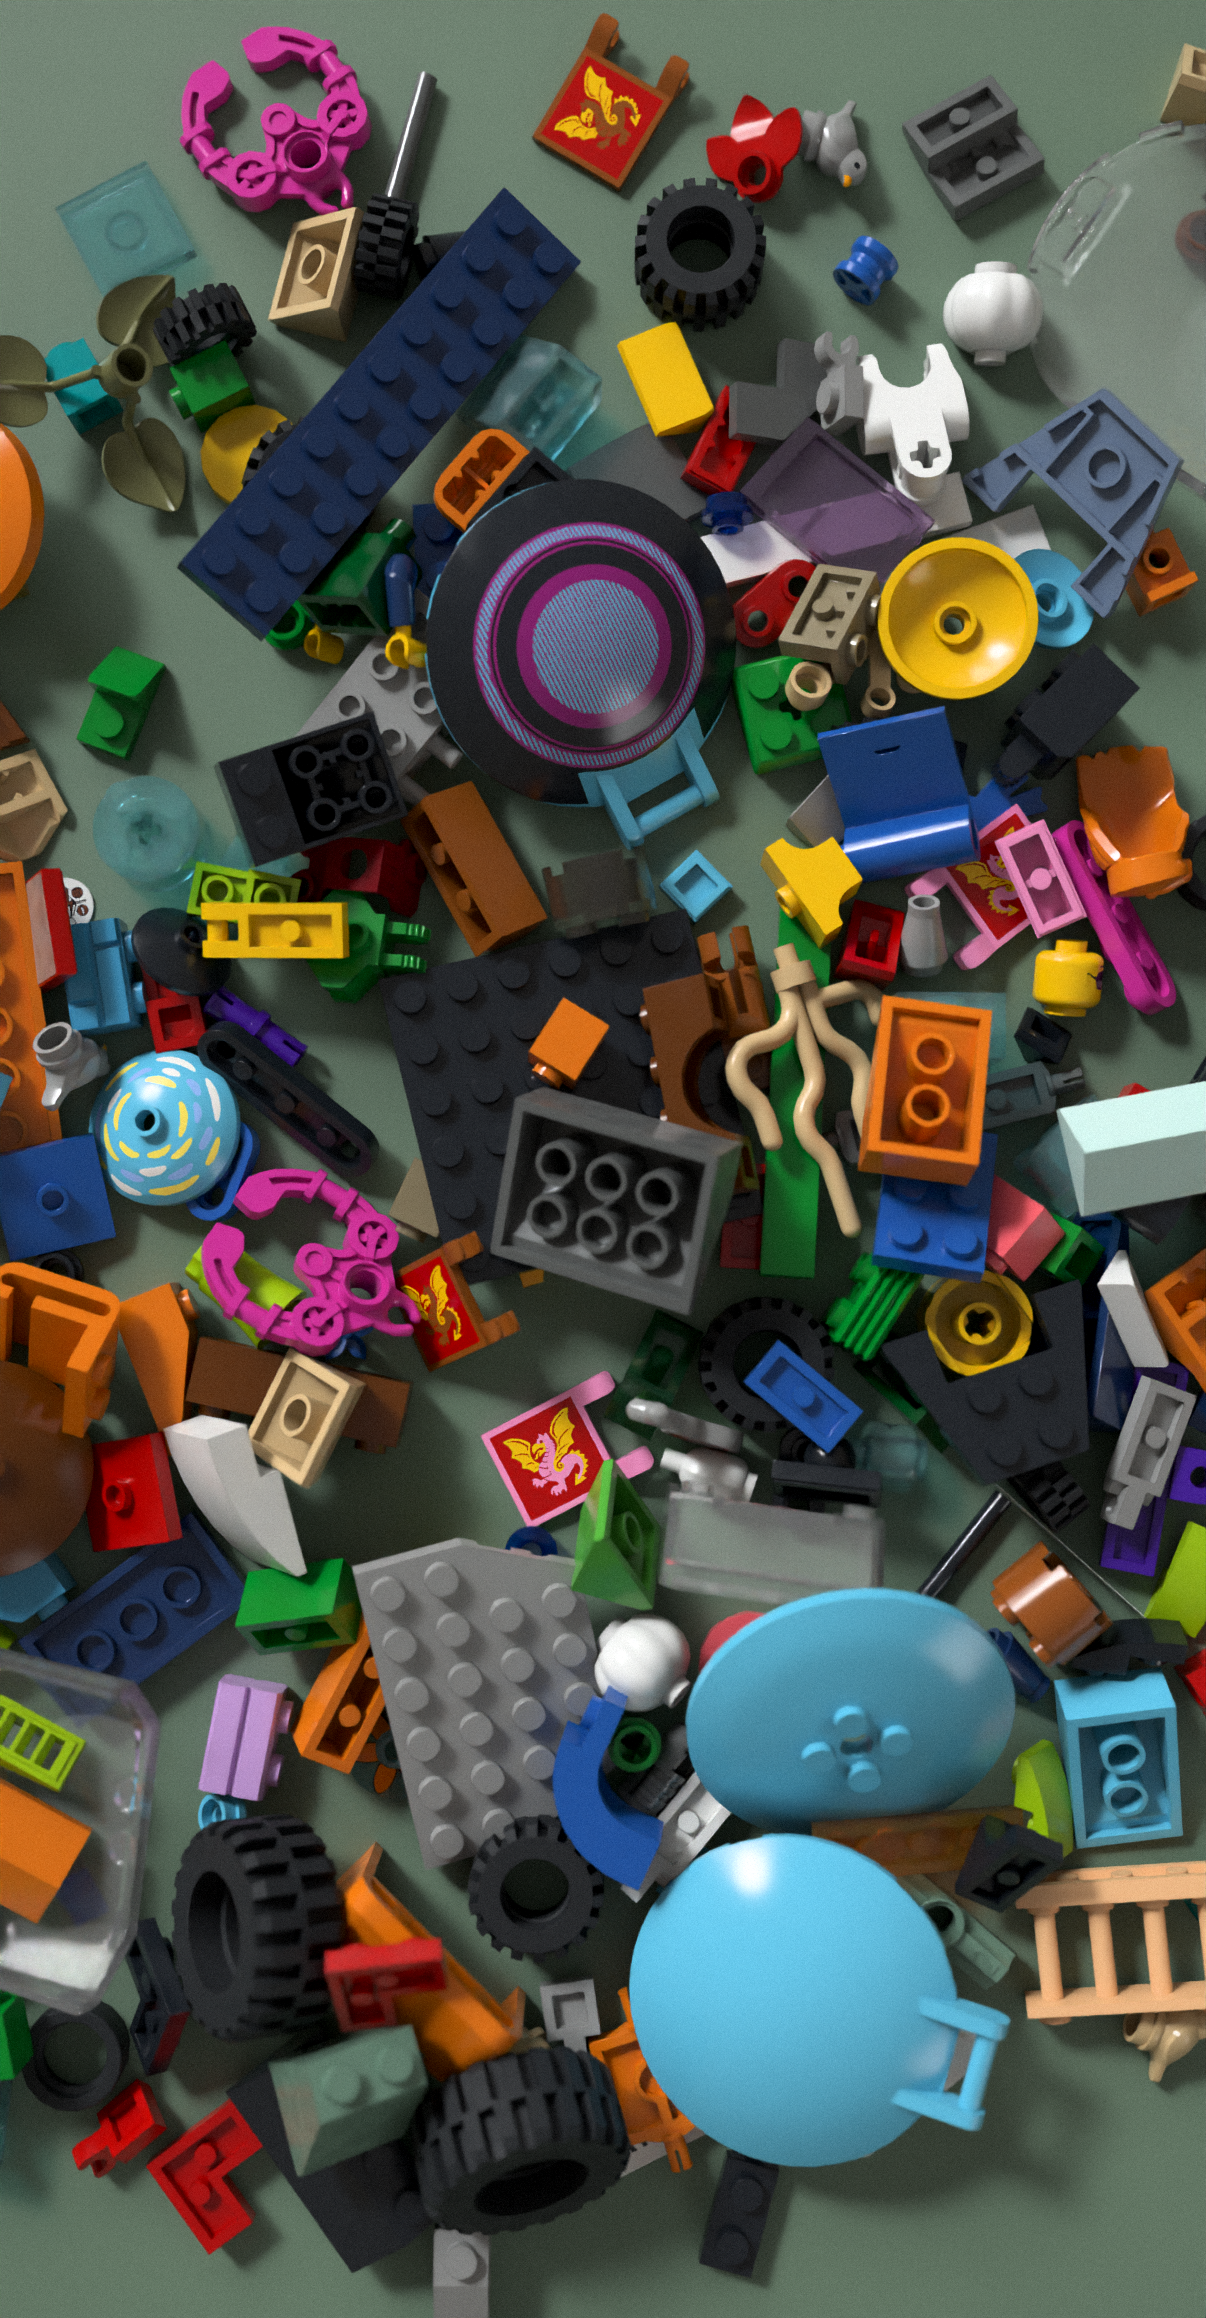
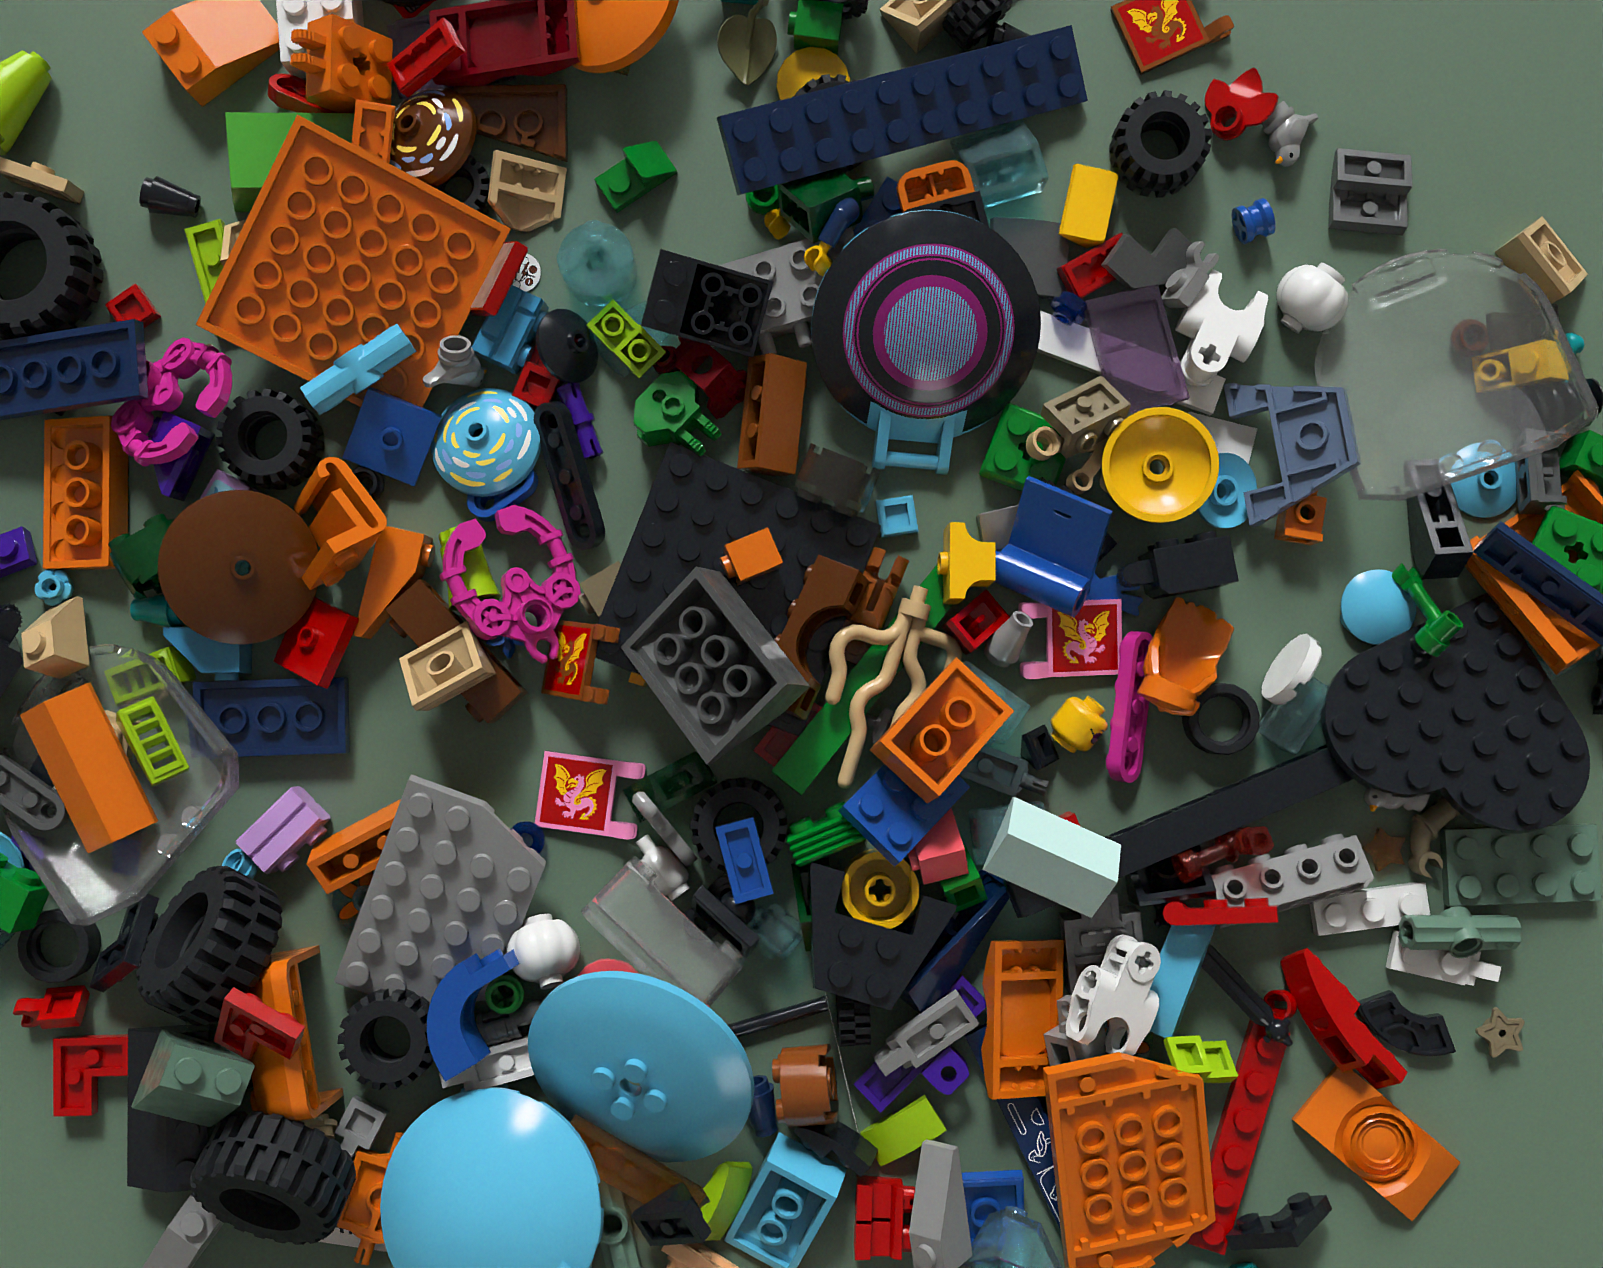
camera: 40 degrees right, 0 degrees up
(236, 1493) = (375, 682): white slope -> none
(277, 929) = (629, 371): yellow plate -> none
(300, 1612) = (366, 776): green brick -> none
(616, 1542) = (577, 870): bright green slope -> none
(773, 600) = (1060, 378): red plate -> none
(1040, 878) = (1102, 653): bright pink brick -> none
(1131, 1313) = (975, 944): white slope -> none

